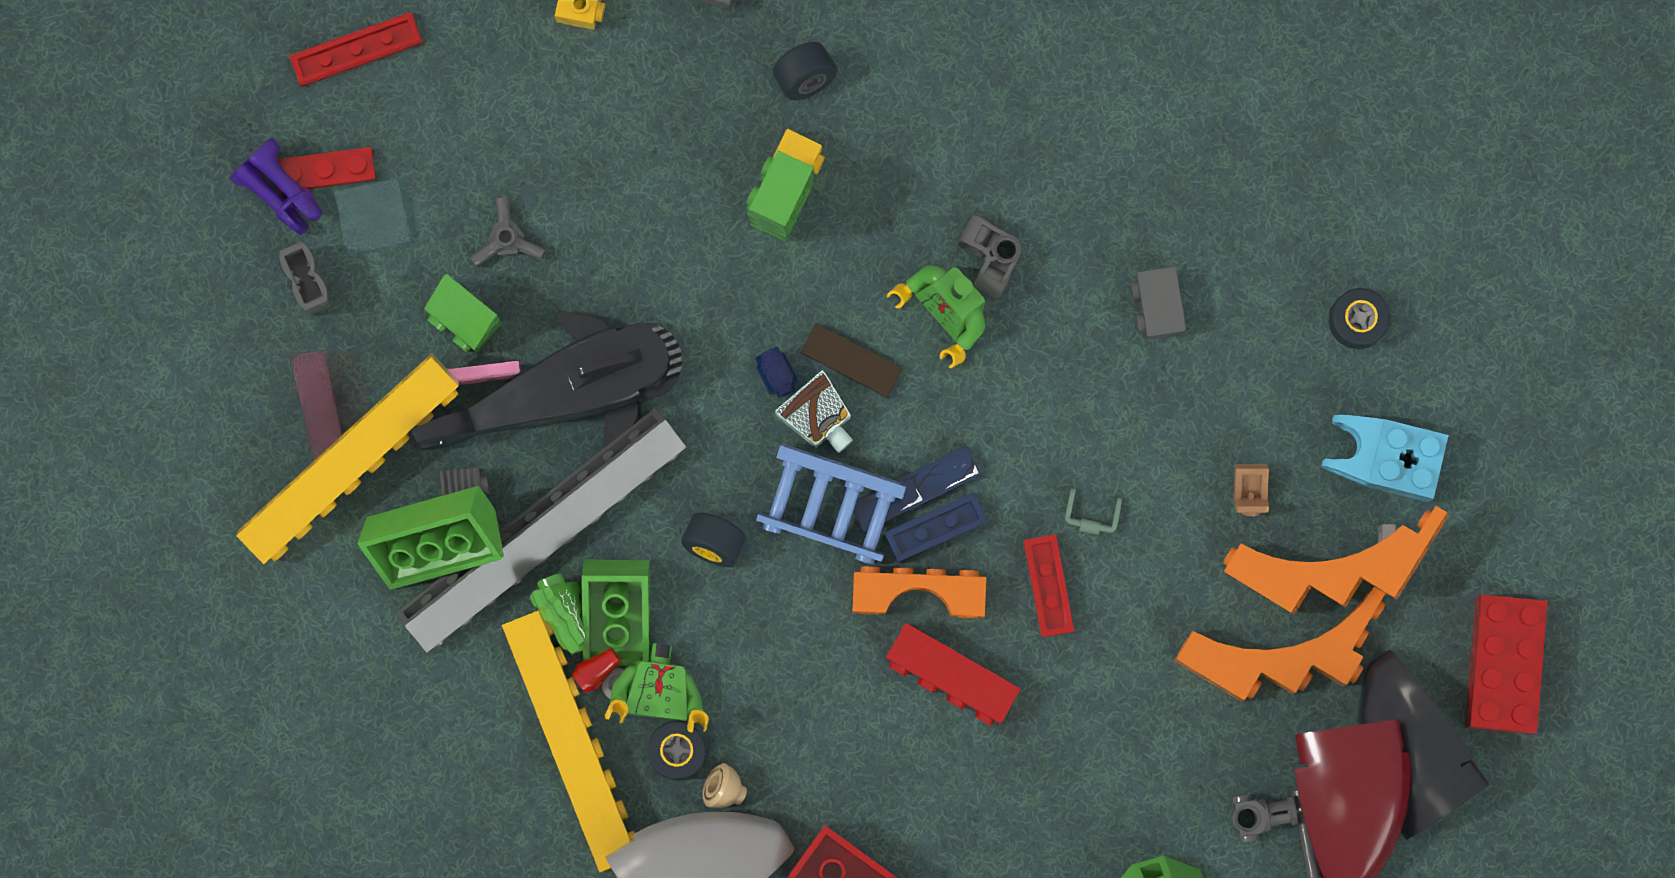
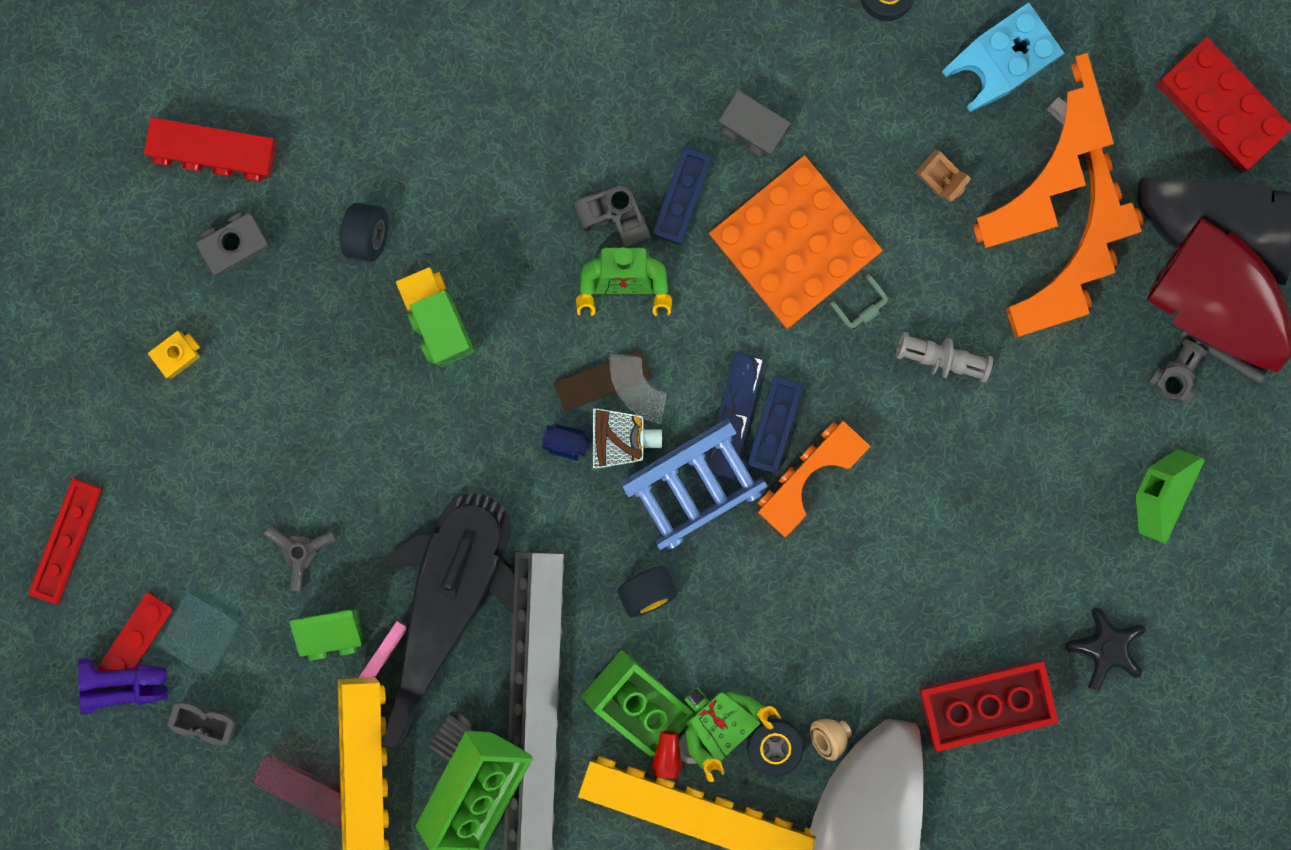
camera: 45 degrees left, 5 degrees up
(561, 610) = (603, 744): bright green rock -> none
(866, 391) = (634, 389): none -> clear tile
(953, 674) = (890, 504): red brick -> none
(1048, 586) = (886, 381): red plate -> none
(1053, 296) = (682, 195): none -> dark blue plate
(1095, 418) = (795, 242): none -> orange plate
(1108, 615) = (944, 356): none -> light grey piece

